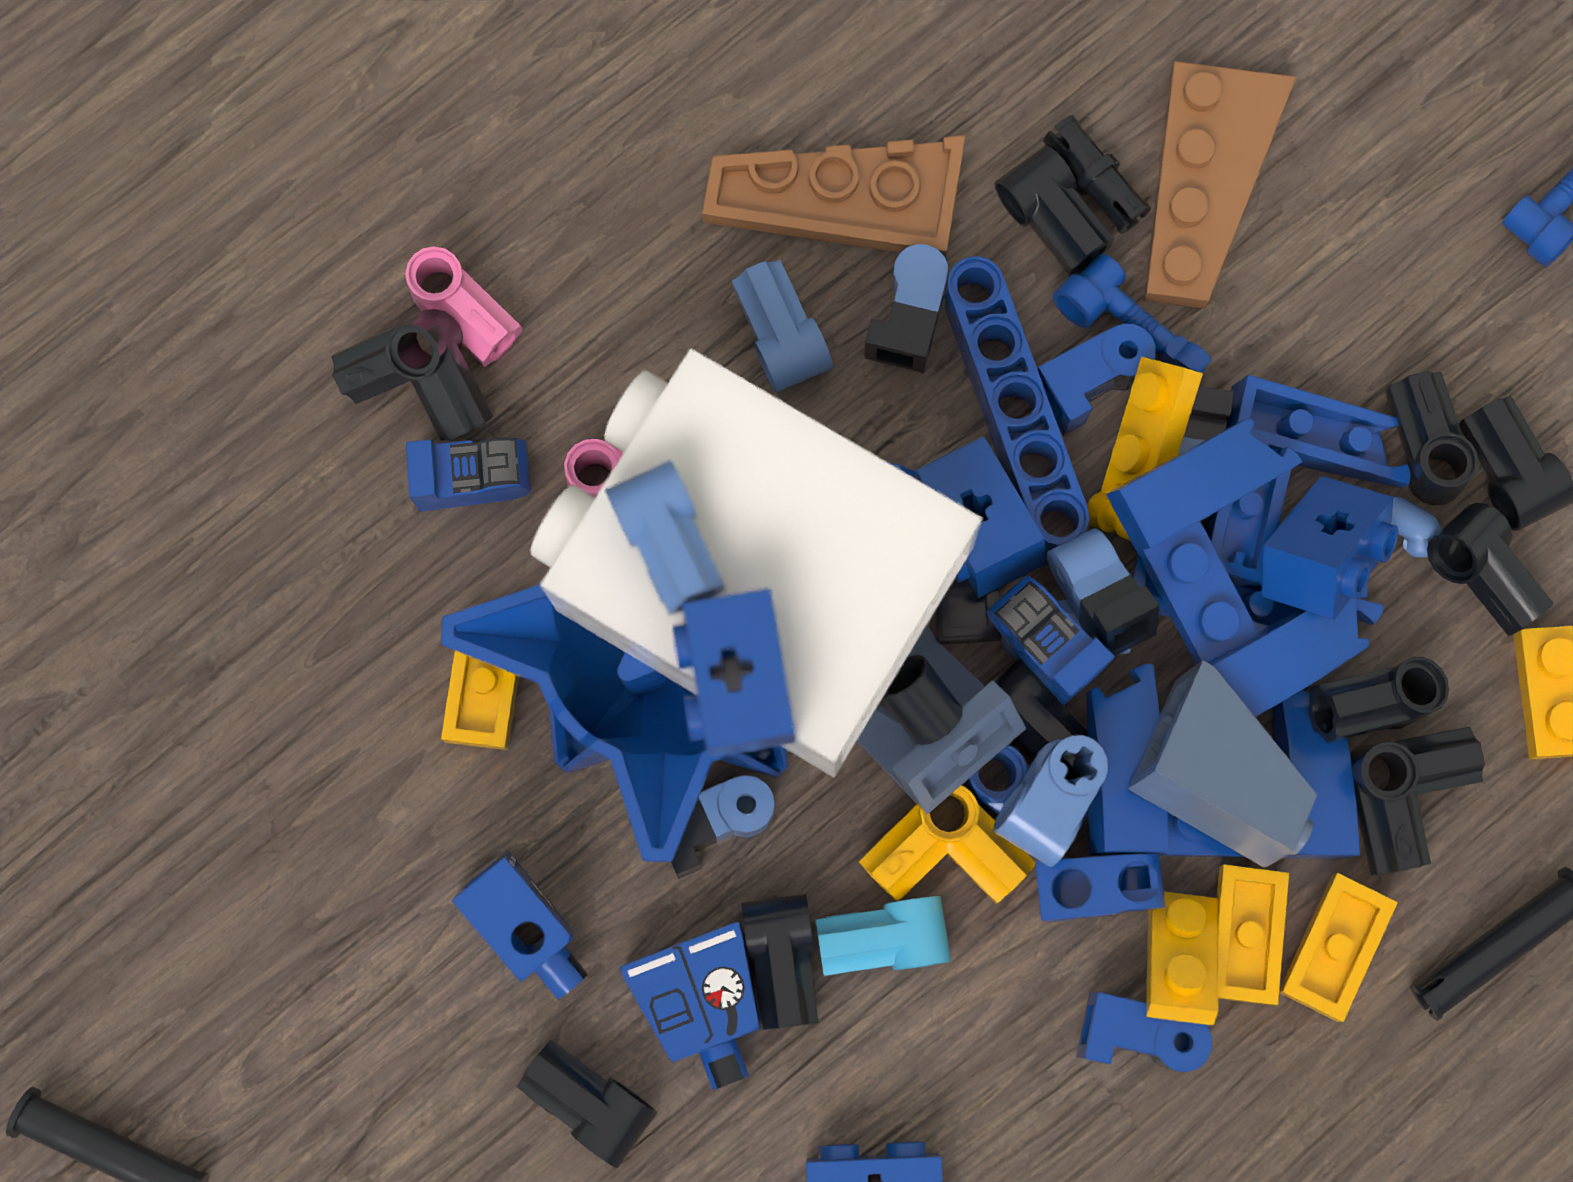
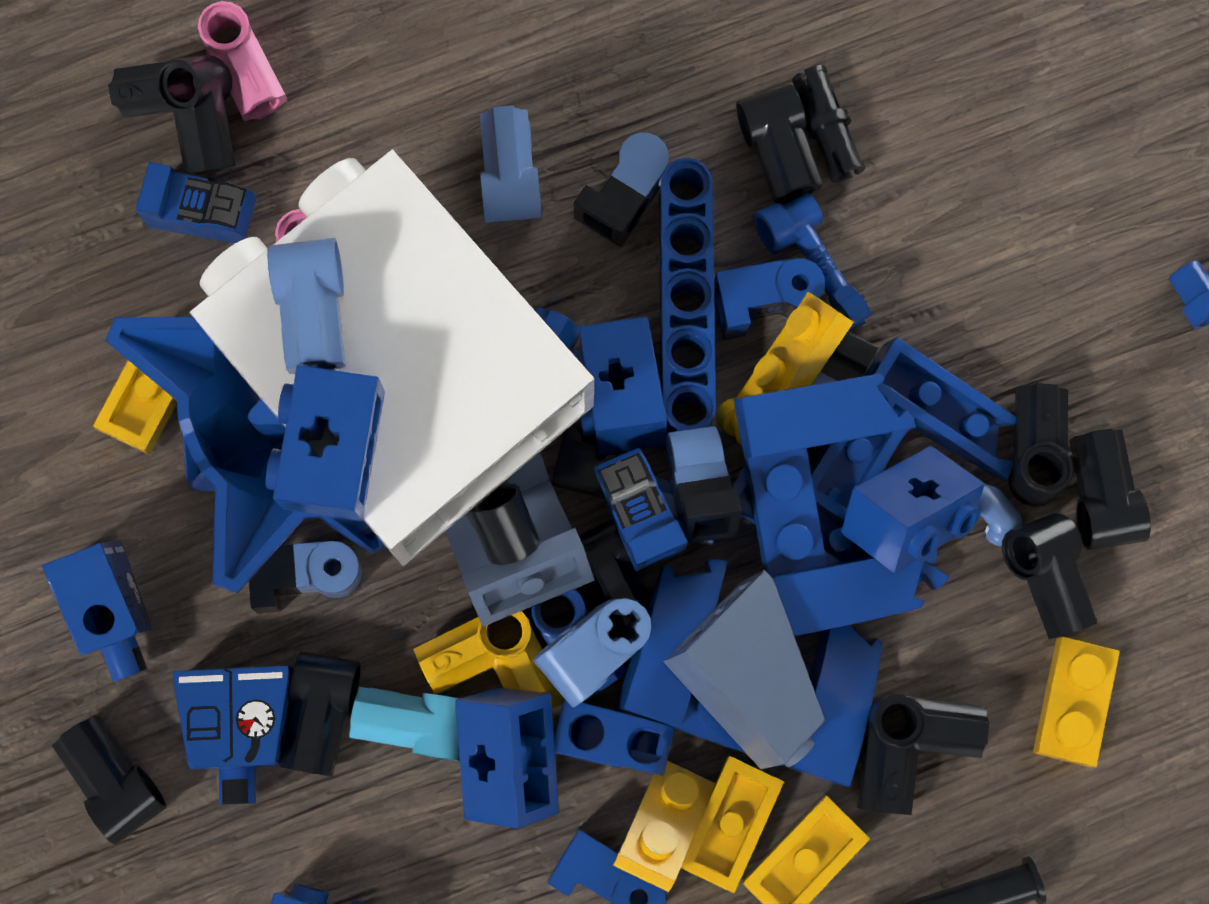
camera: 10 degrees right, 0 degrees up
(841, 195) = (602, 72): medium nougat wing -> none
(998, 941) = (507, 757): none -> blue brick
(1209, 162) = (932, 143): medium nougat wing -> none
(1377, 699) = (911, 656): black piece -> none

